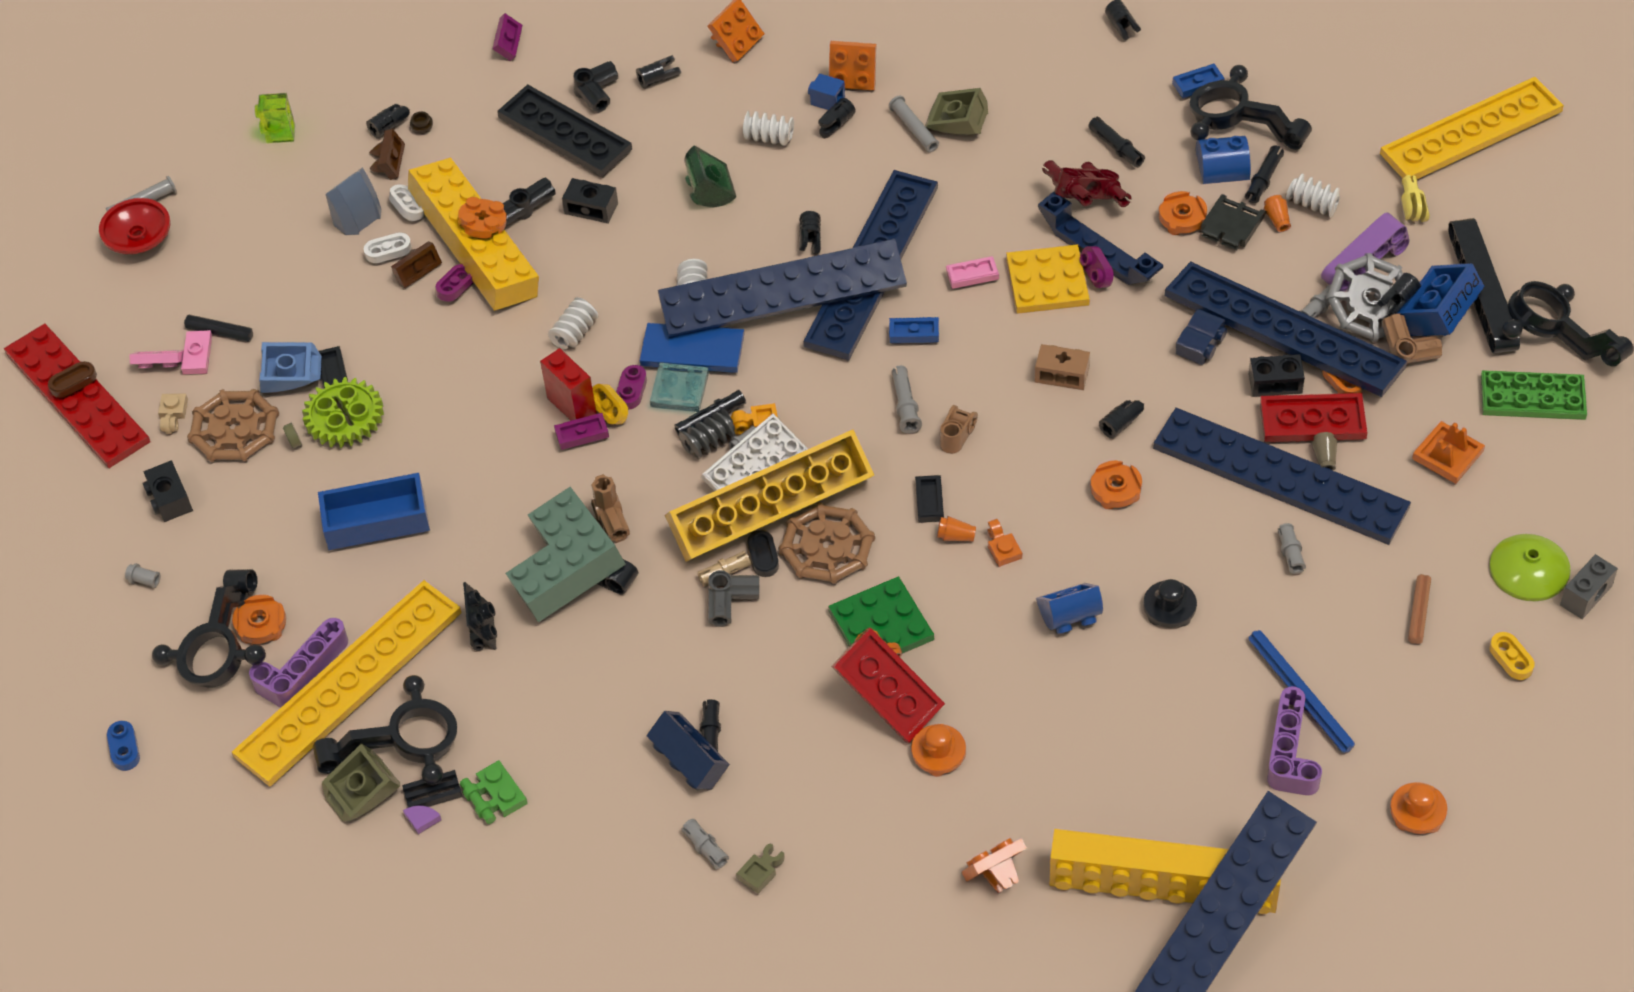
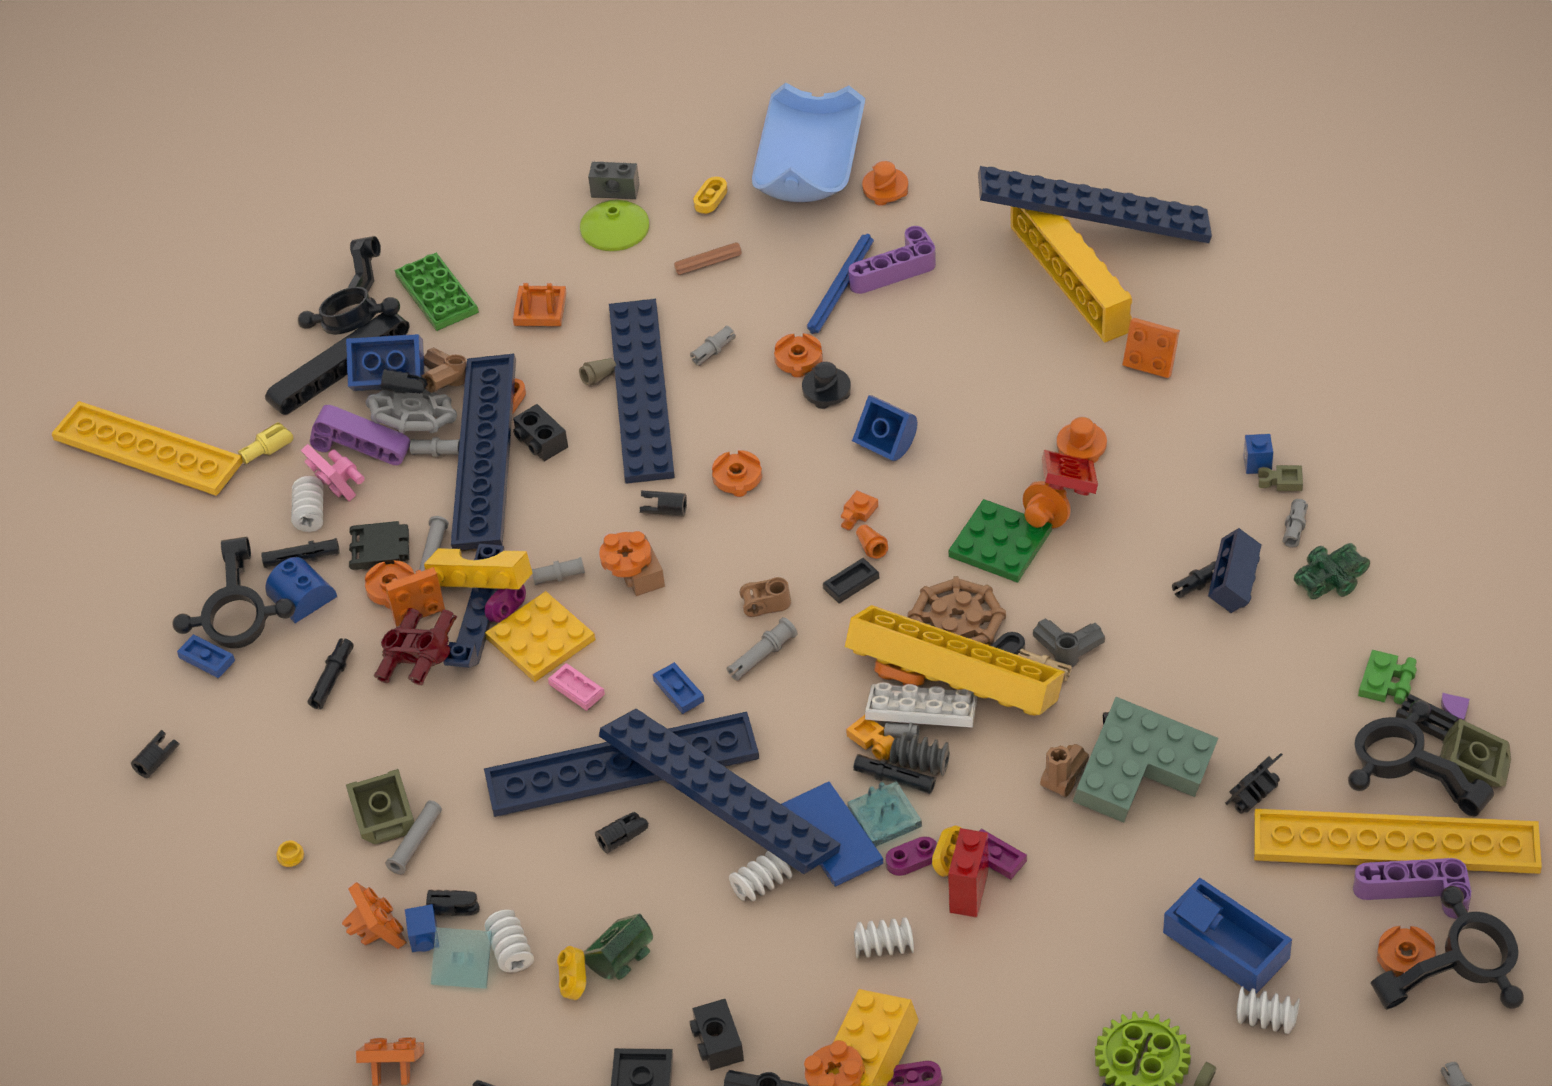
camera: 125 degrees left, 5 degrees down
(298, 498) = (1267, 1010): none -> white piece
(390, 482) = (1200, 911): none -> blue brick
(628, 828) = (1331, 571): none -> clear green axle
(723, 152) = (571, 972): none -> yellow plate
(781, 100) = (461, 957): none -> clear light blue piece
(800, 864) = (1257, 452): none -> blue brick
(962, 56) = (290, 853): none -> yellow plate
(1069, 335) = (616, 544): none -> orange plate
(1104, 316) = (558, 571): none -> light grey pin
(1114, 261) = (501, 571): none -> yellow arch
(1141, 205) = (415, 591): none -> orange plate
(1198, 251) = (434, 539): none -> light grey pin
(1200, 337) = (533, 497): dark blue brick -> none
(1226, 617) = (798, 364): none -> orange plate
(1277, 211) = (340, 522): orange cone -> none
(1304, 416) = (567, 393): red plate -> none
(1333, 213) = (335, 474): none -> bright pink plate
(1513, 757) = (807, 143): none -> light blue panel

